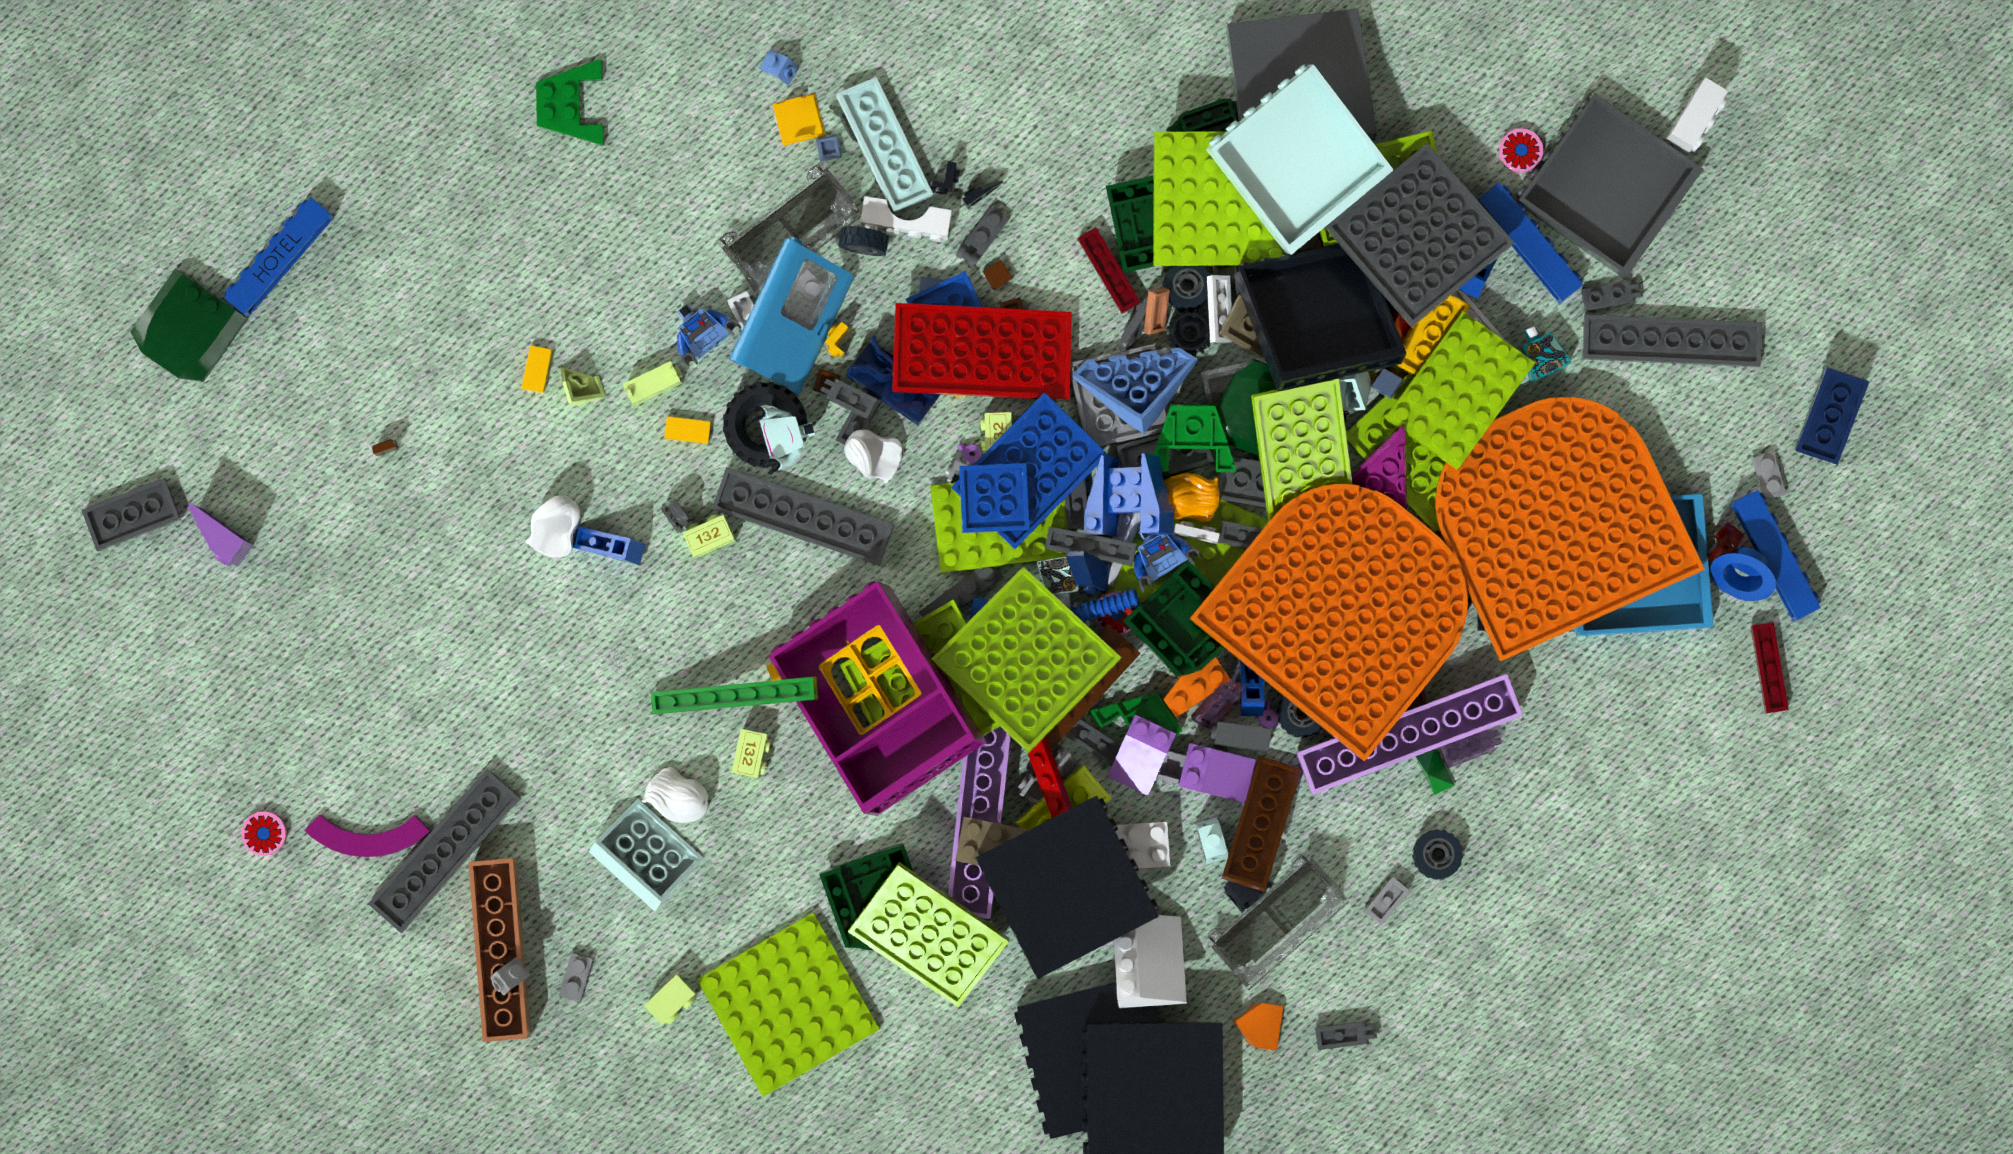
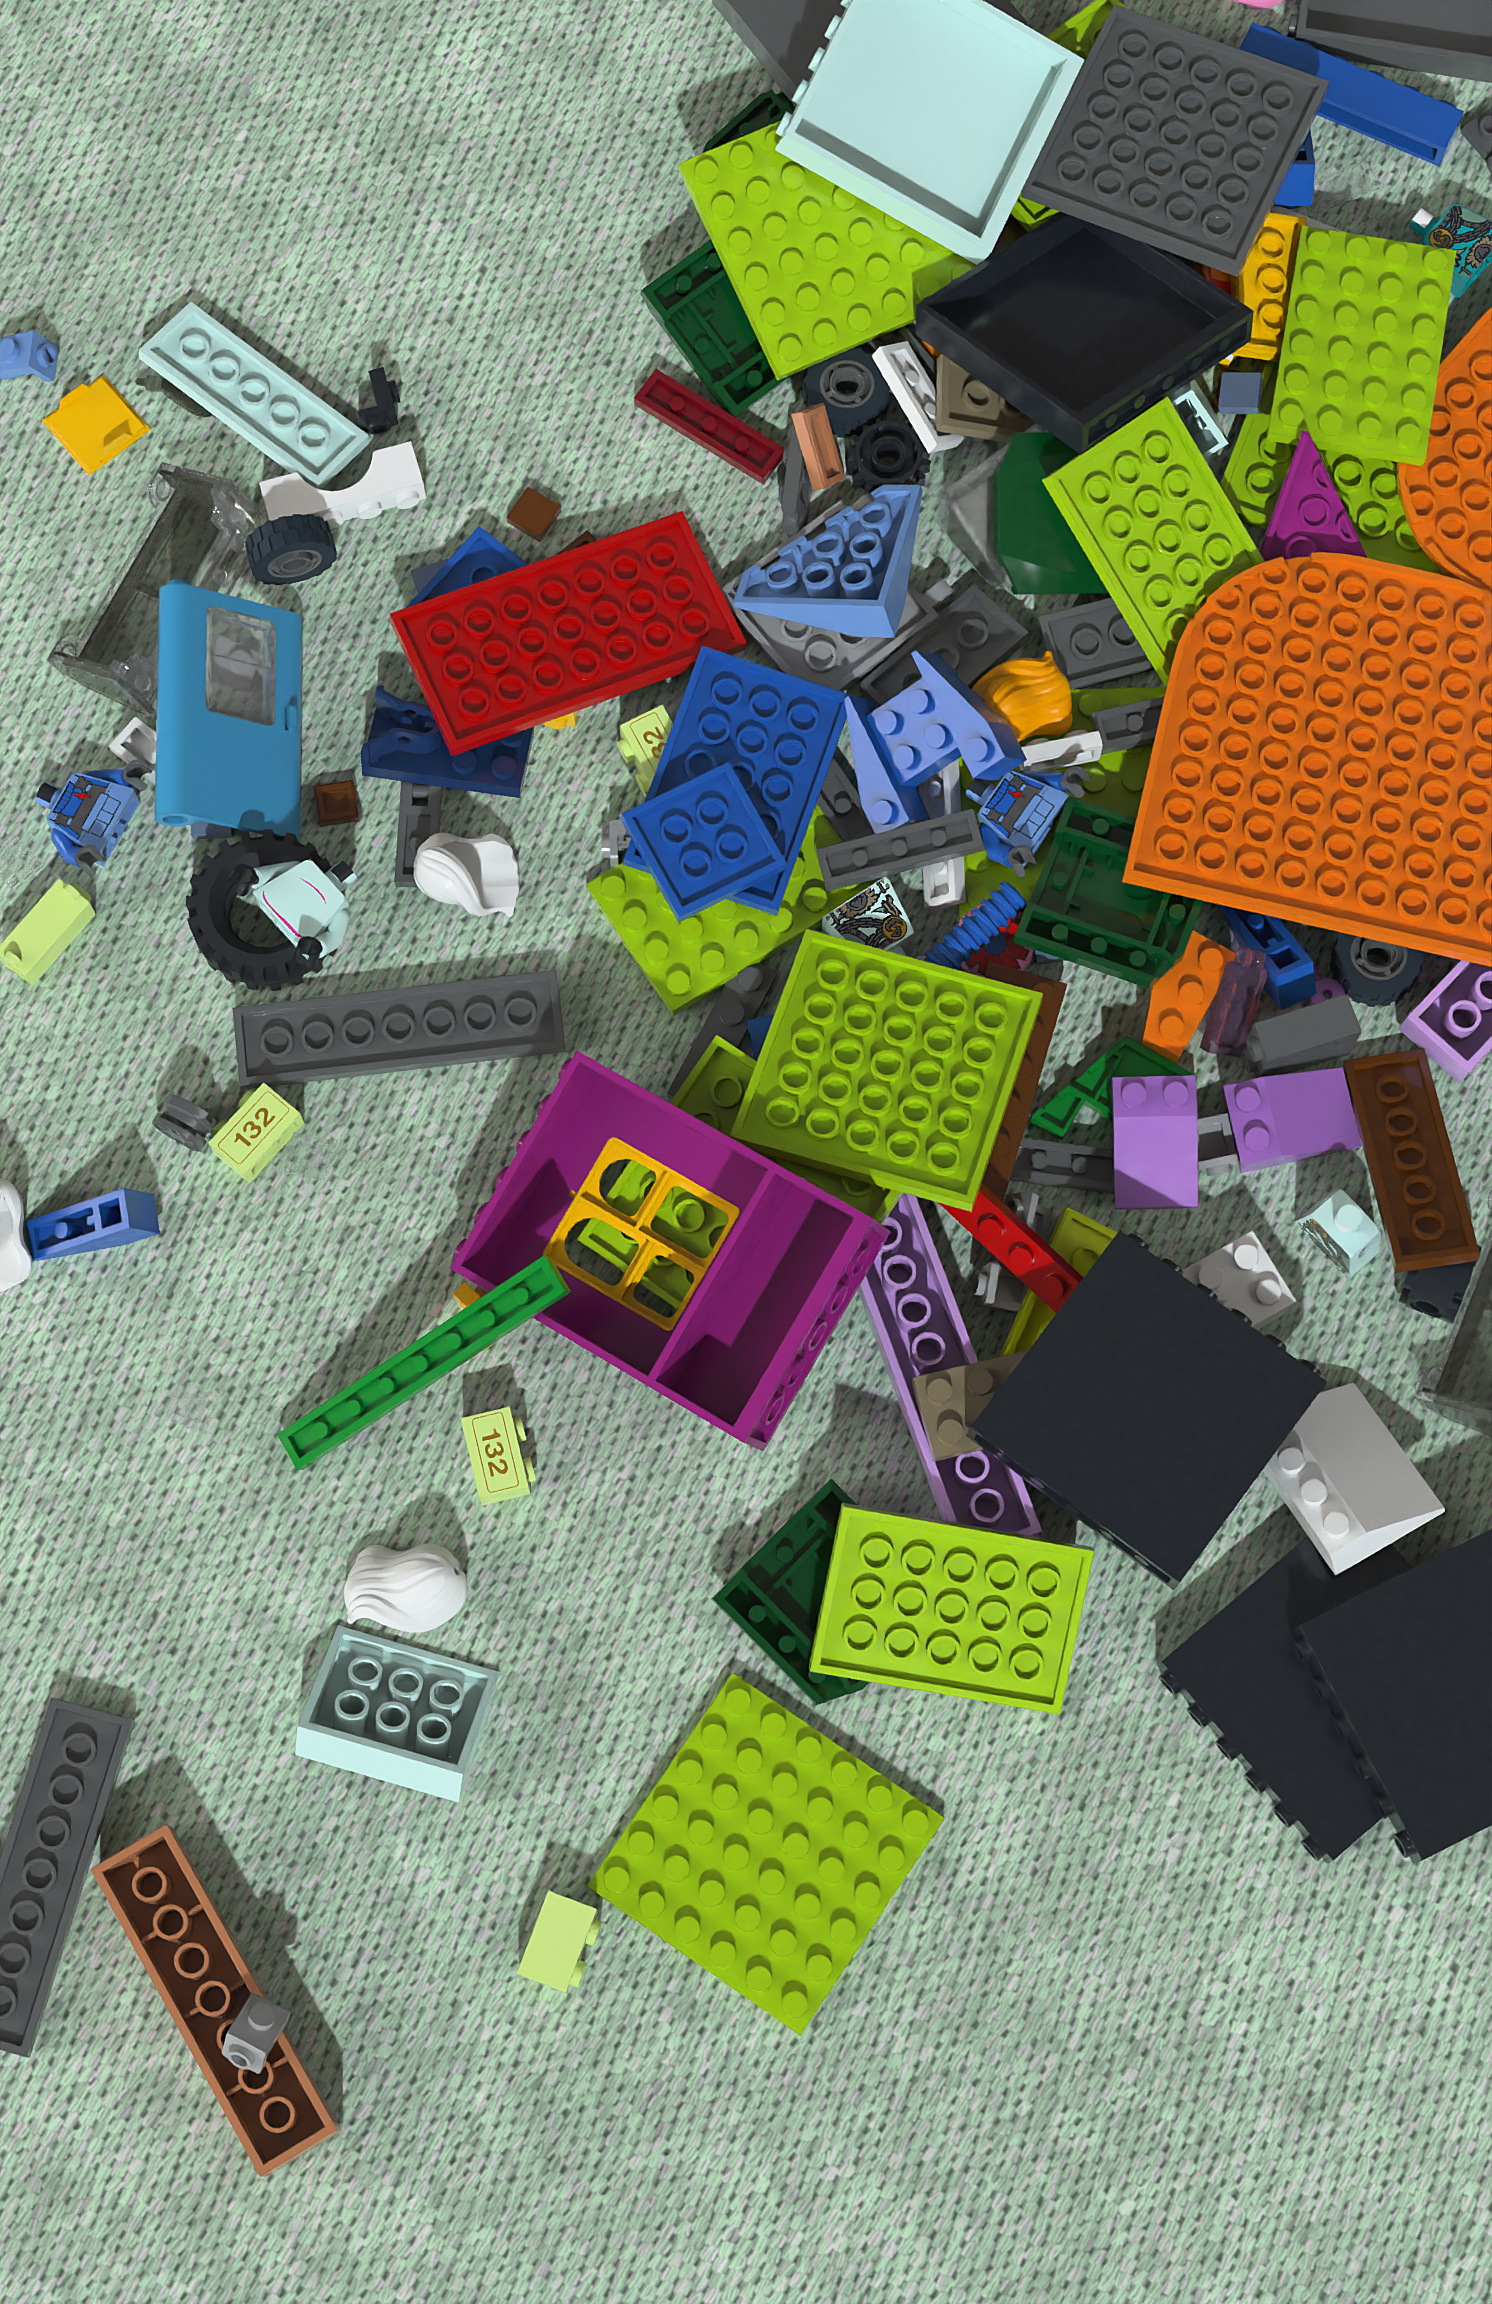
camera: 30 degrees left, 10 degrees down
(576, 977) = (373, 1986): light grey plate -> none
(687, 430) = (139, 982): yellow tile -> none
(828, 148) = (165, 444): sand blue tile -> none
(836, 334) = (316, 719): yellow bracket -> none
(850, 398) = (387, 802): dark grey hinge -> none
(967, 450) = (622, 800): medium lavender piece -> none
(974, 195) = (438, 408): black plate -> none
(982, 236) = (480, 465): dark grey plate -> none
(1088, 571) = (915, 890): dark blue slope -> none
(1194, 428) = (974, 587): green wing -> none

